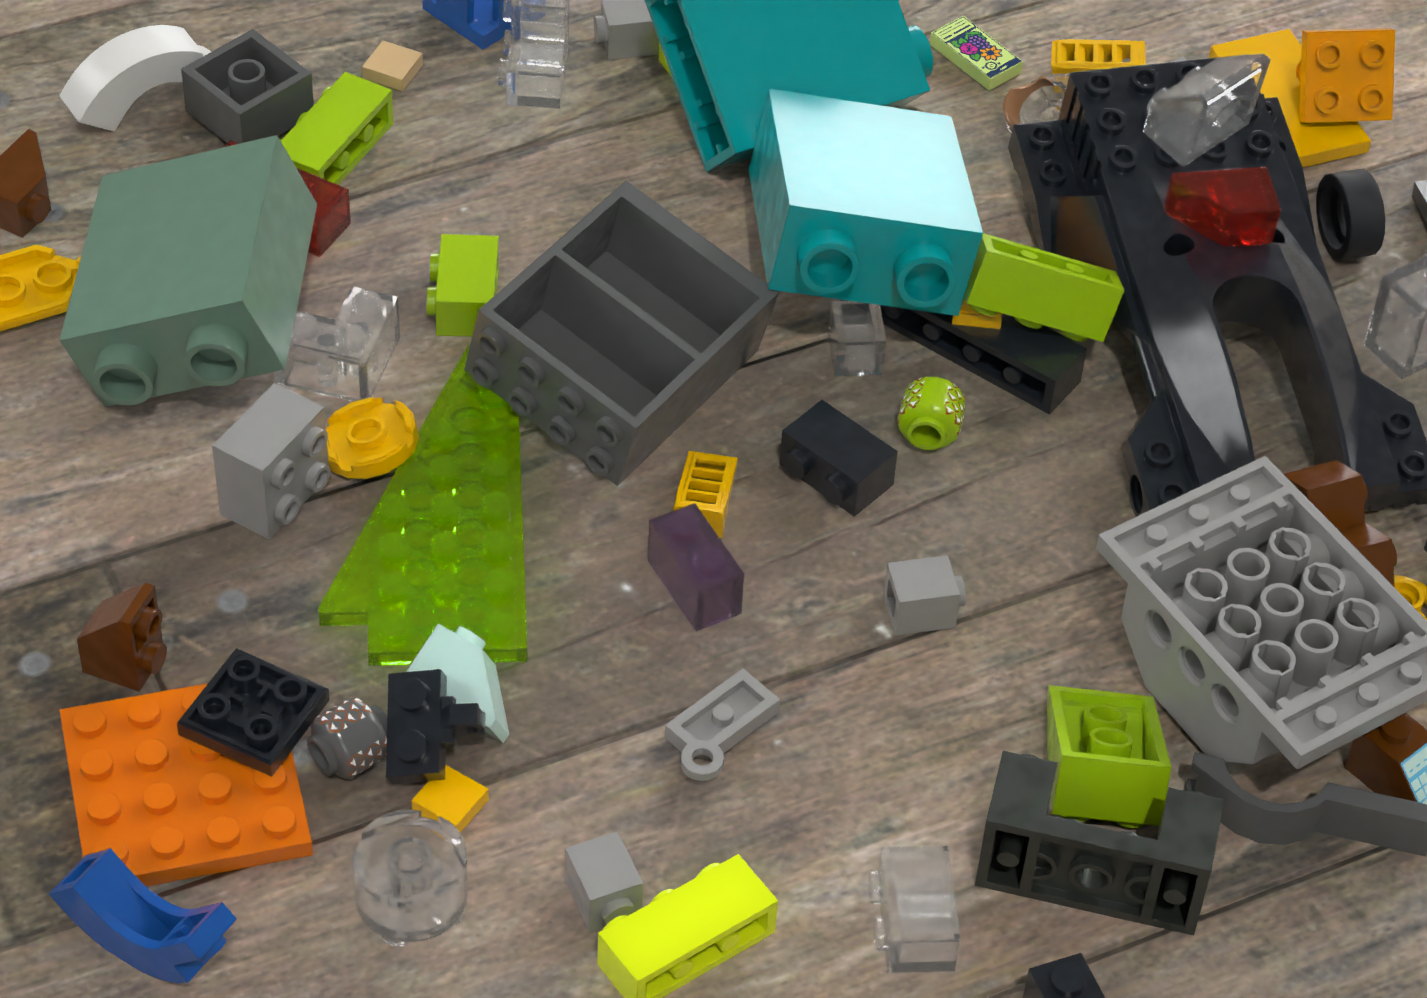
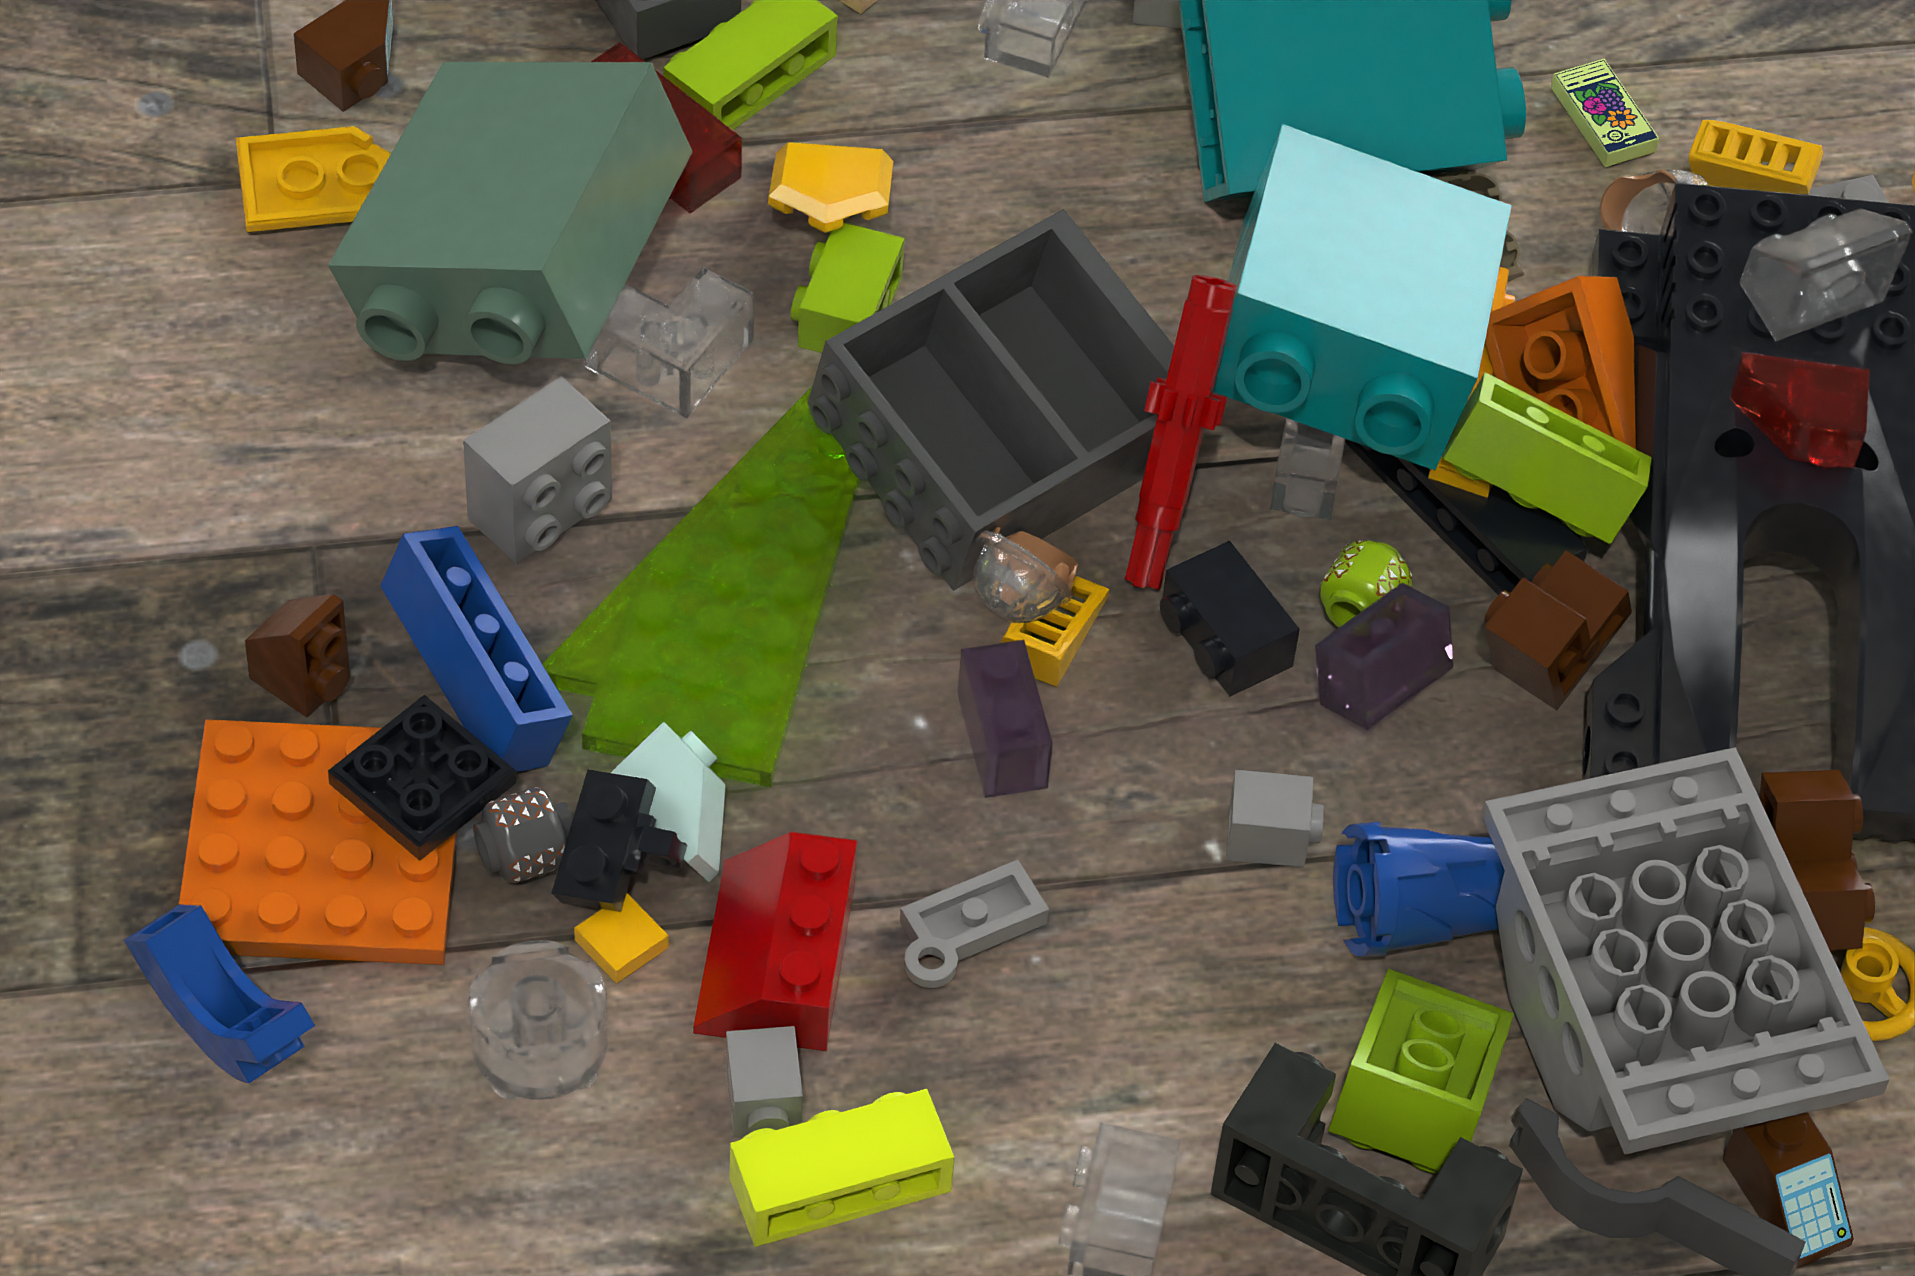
camera: 15 degrees right, 5 degrees up
(263, 603) = (475, 647): none -> blue brick
(370, 438) = (670, 463): yellow tile -> none
(425, 210) = (831, 183): none -> yellow tile
(577, 769) = (779, 938): none -> red slope
(676, 457) = (1022, 575): none -> clear piece
(766, 303) = (1184, 409): none -> red piece
(965, 458) = (1384, 656): none -> clear purple brick
(1031, 207) = (1571, 352): none -> orange slope
(1052, 617) = (1413, 887): none -> blue cone
(1084, 410) = (1555, 627): none -> reddish brown brick

